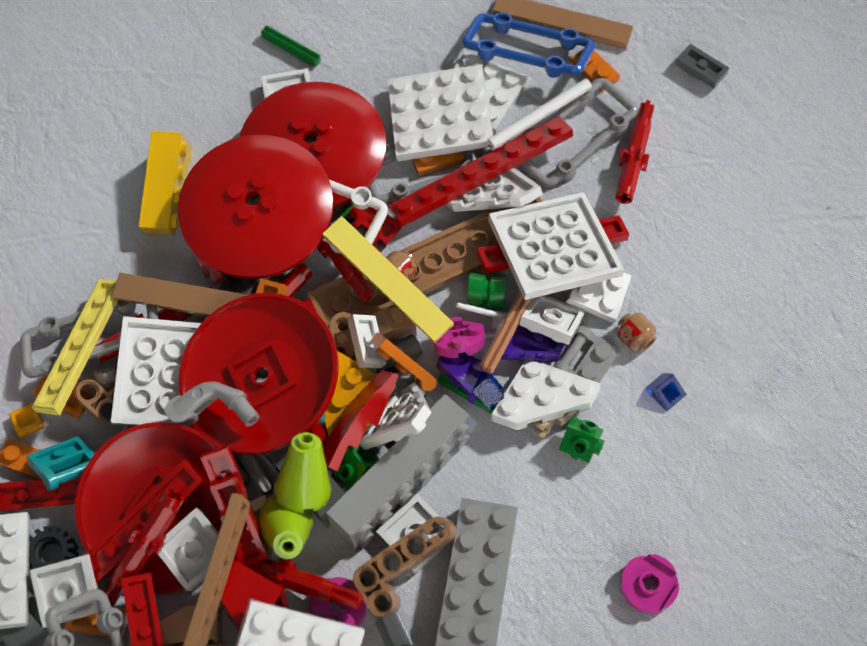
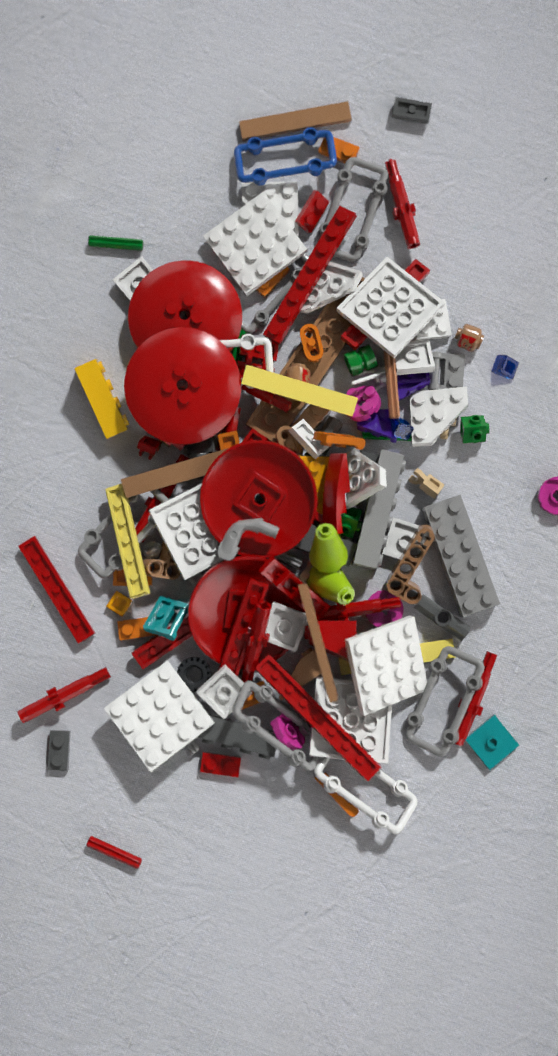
camera: 30 degrees left, 20 degrees up
(182, 261) = (148, 445): none -> red tile
(438, 243) = (312, 343): none -> orange plate
(486, 478) = (429, 484): none -> tan plate
(522, 108) = (312, 211): none -> red plate
(539, 114) = (326, 211): white piece -> none

